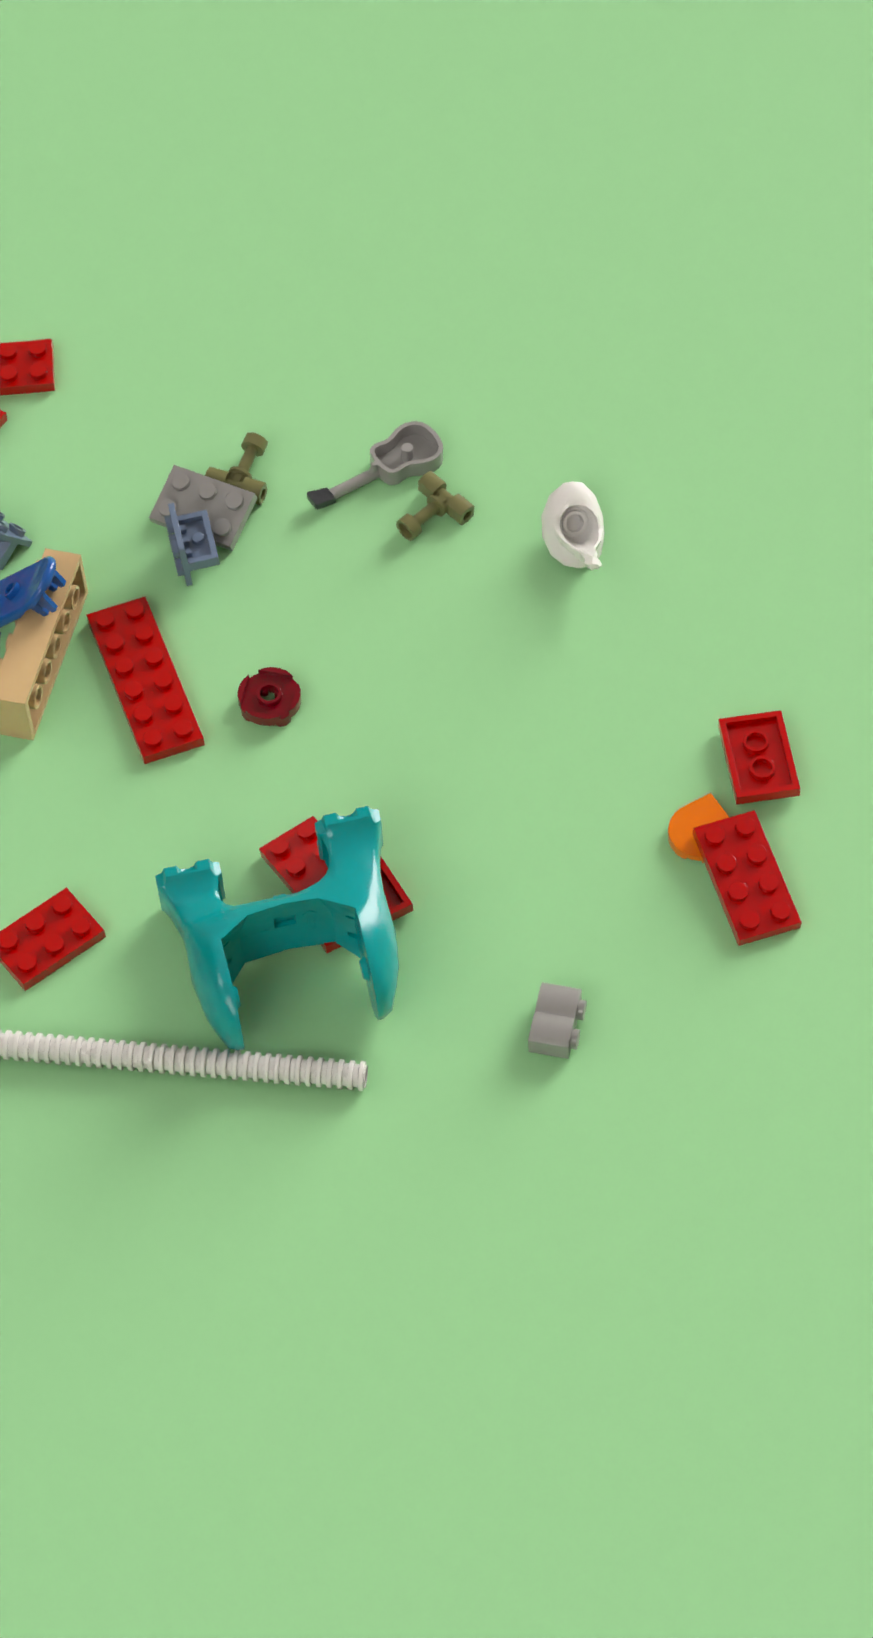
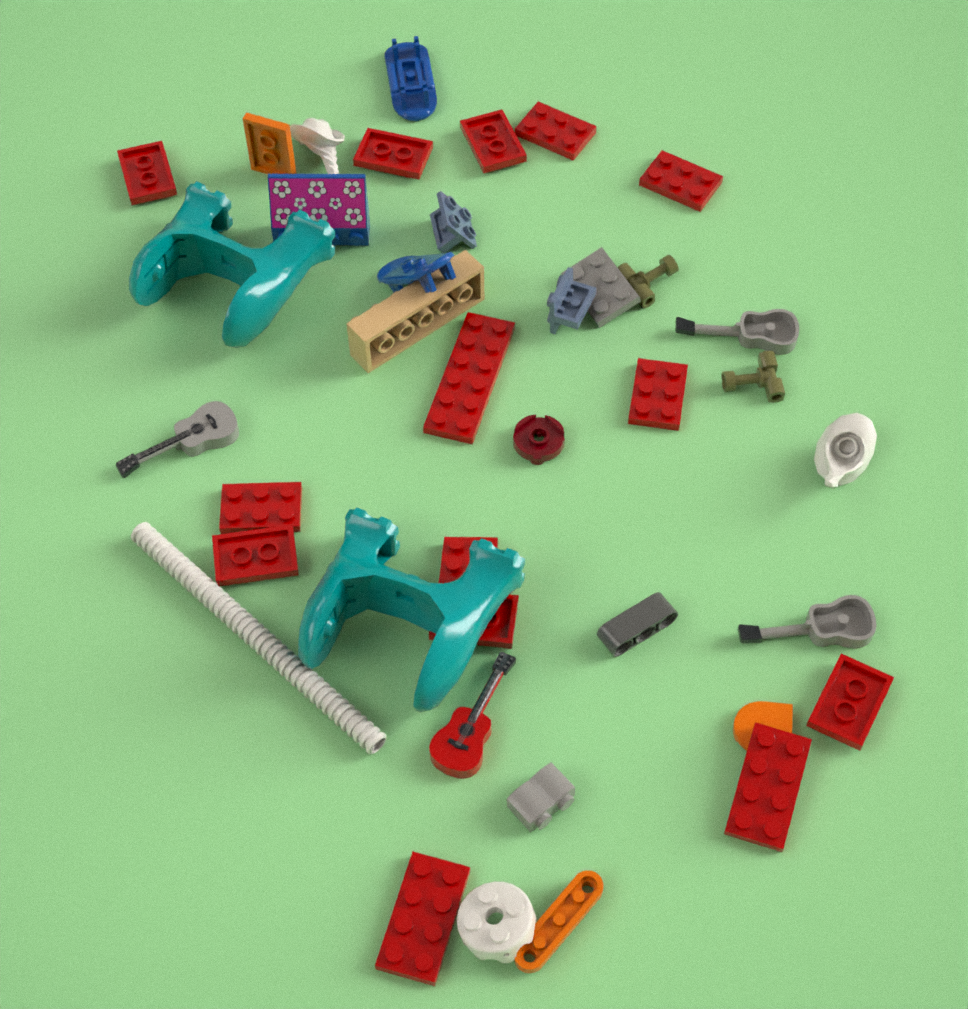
camera: 35 degrees right, 0 degrees up
(84, 986) = (255, 555): none -> red plate
(189, 348) = (681, 180): none -> red plate
(349, 582) = (658, 394): none -> red plate
(441, 1025) = (460, 744): none -> red piece
(513, 811) = (637, 624): none -> dark grey beam
(536, 1194) = (423, 918): none -> red plate
(617, 1166) = (501, 939): none -> white plate
(659, 1113) = (560, 920): none -> orange plate
(696, 691) = (842, 622): none -> light grey piece

